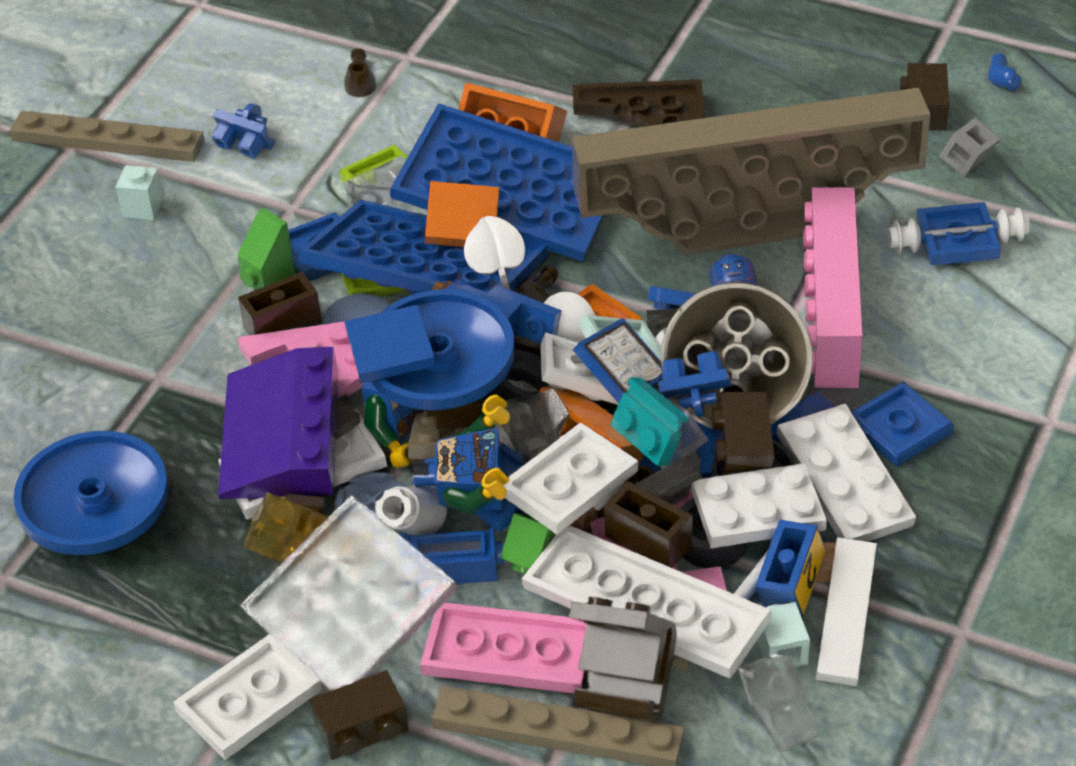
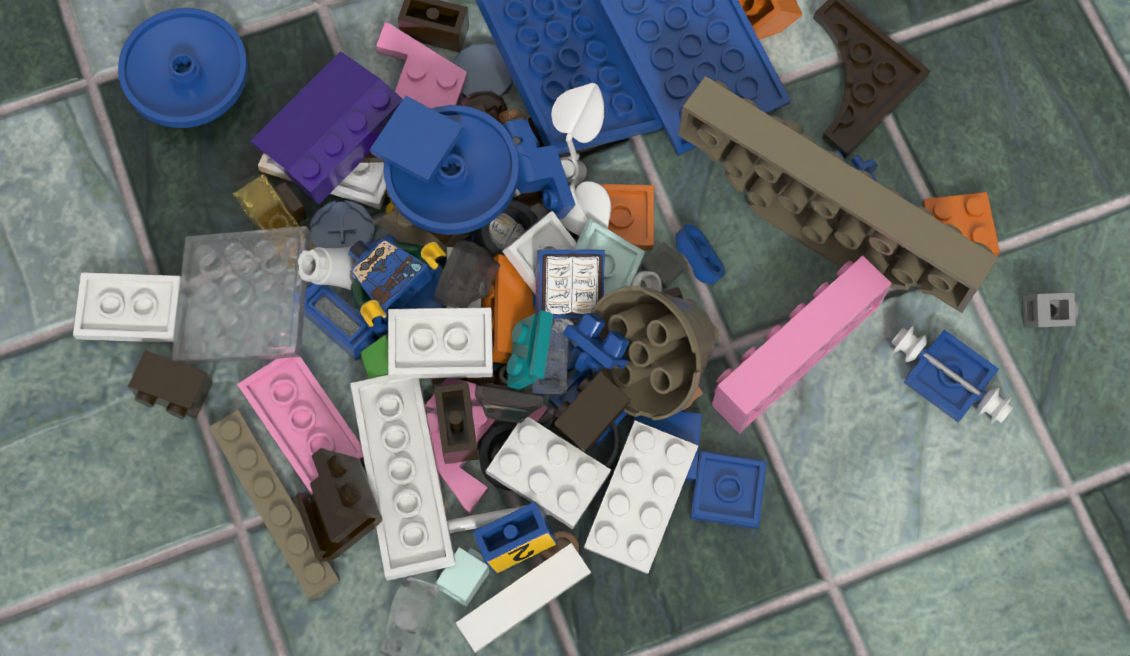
camera: 40 degrees right, 25 degrees up
(456, 210) = (617, 52): orange tile -> none
(536, 288) = (606, 158): dark brown bar -> none
(732, 269) = (748, 271): blue head -> none
(933, 85) = (1075, 234): dark brown brick -> none

